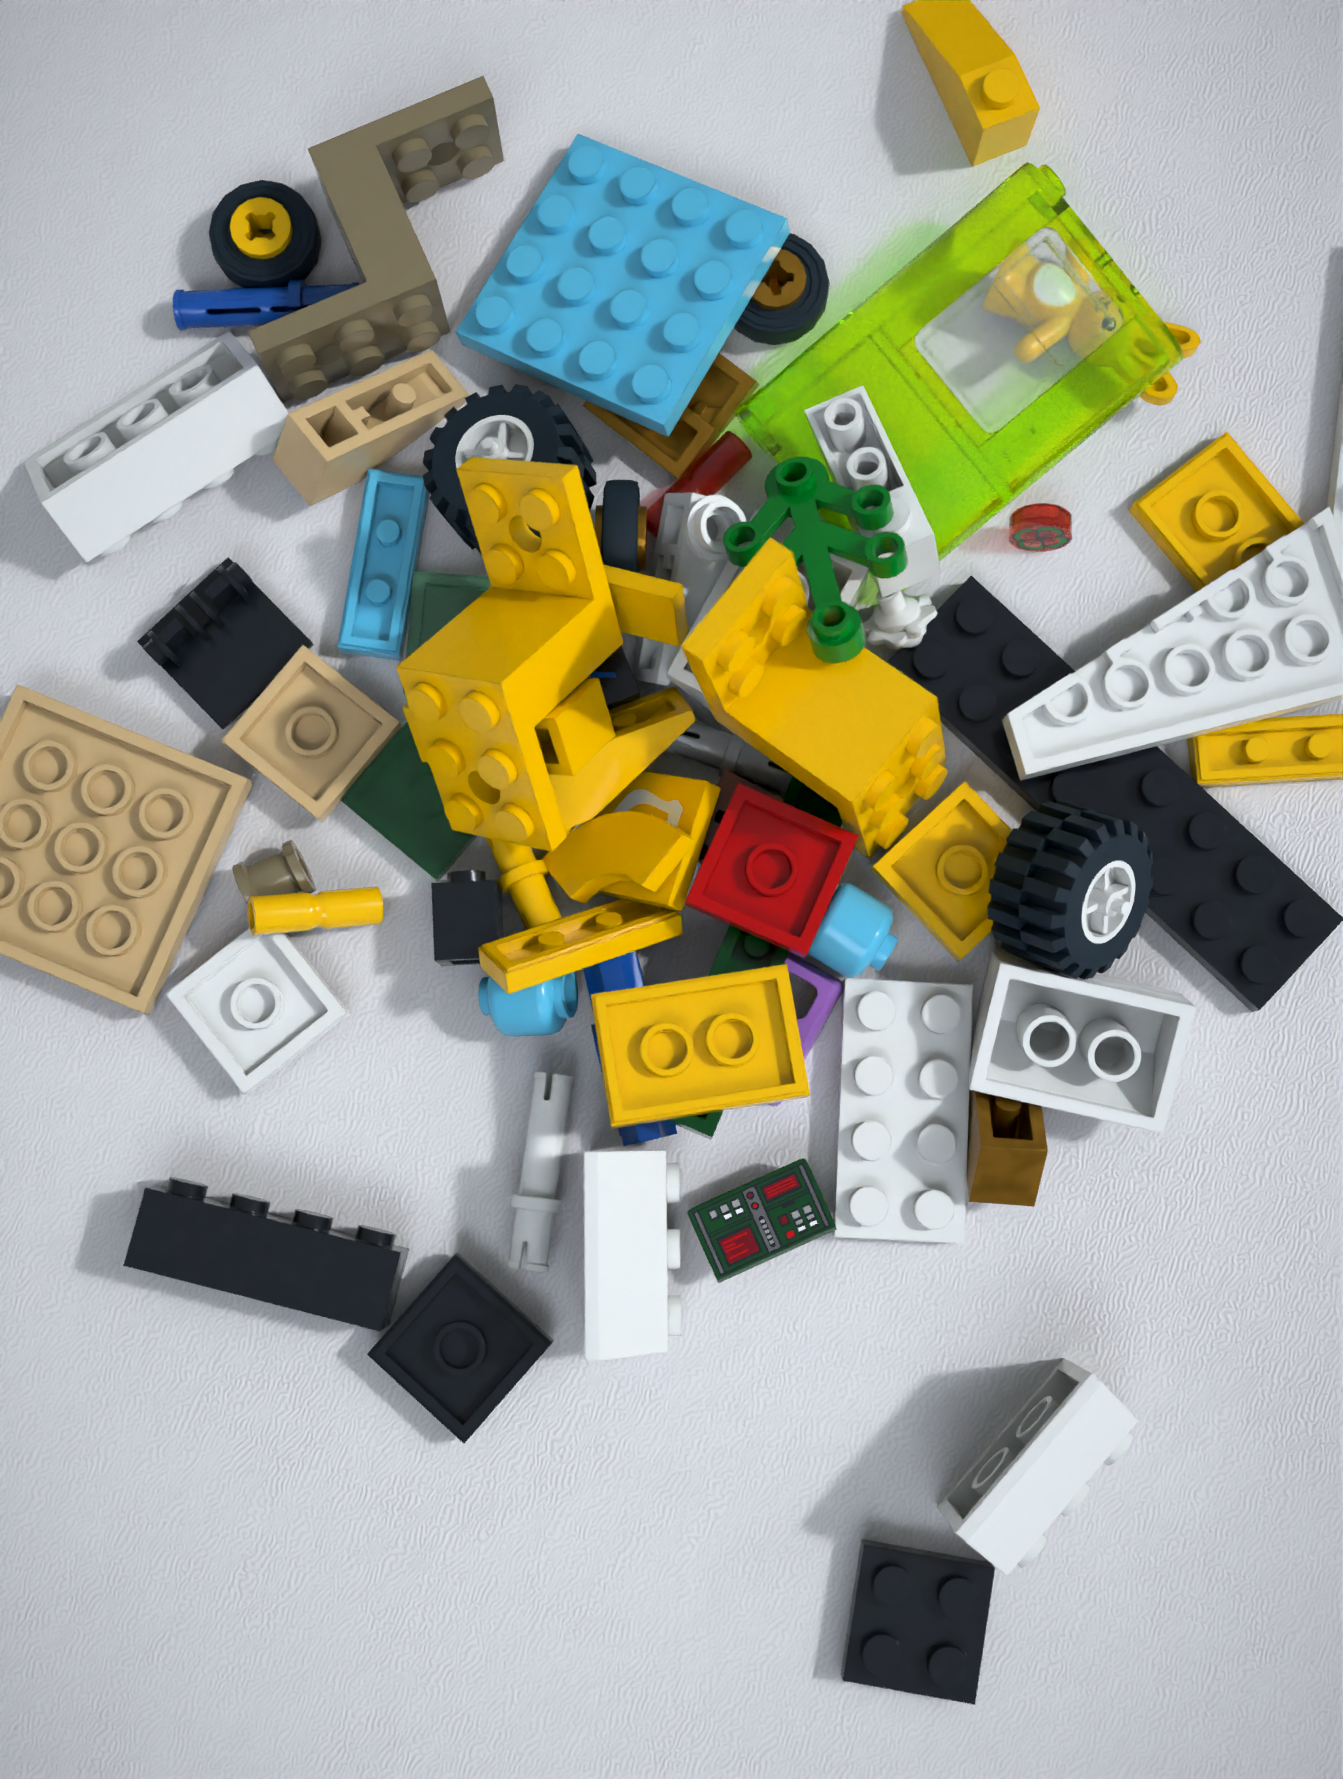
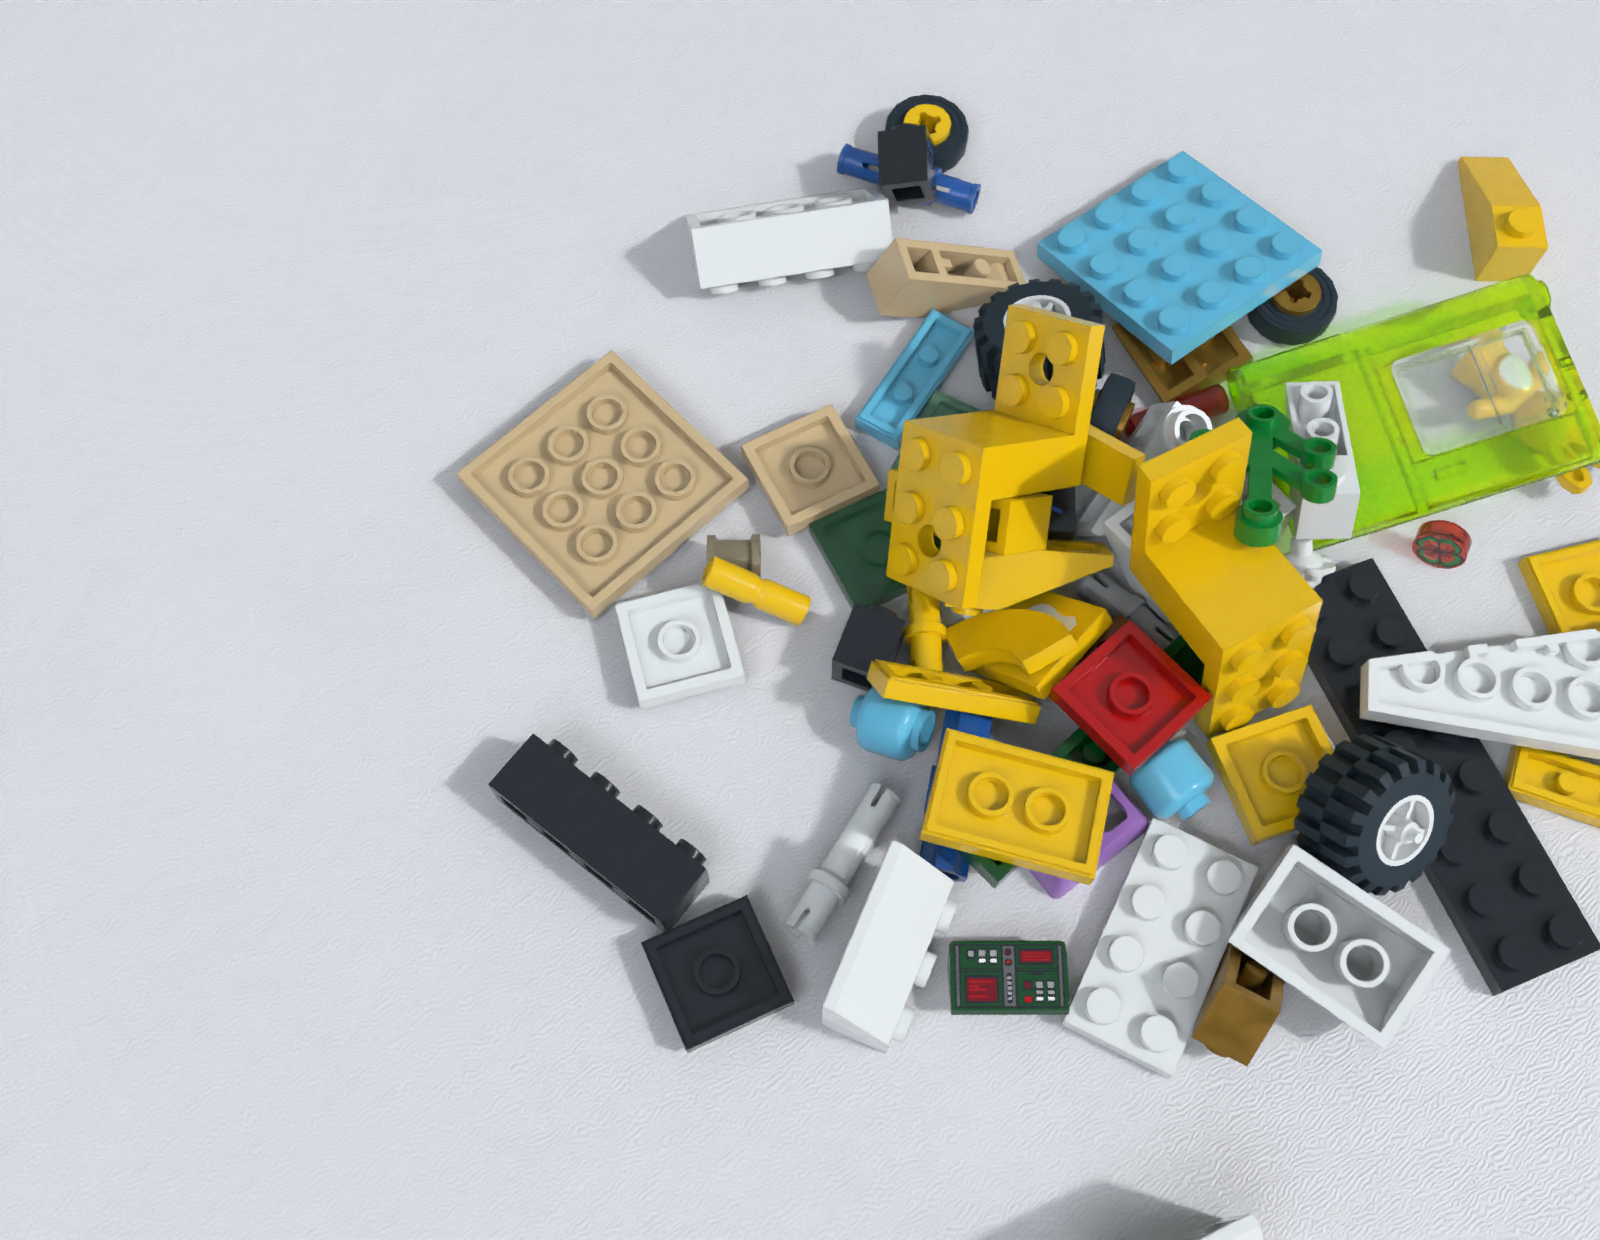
camera: 25 degrees right, 15 degrees down
(224, 642) = (772, 382): black hinge -> none
(253, 292) = (907, 165): none -> black brick
(365, 184) = (1018, 124): dark tan bracket -> none

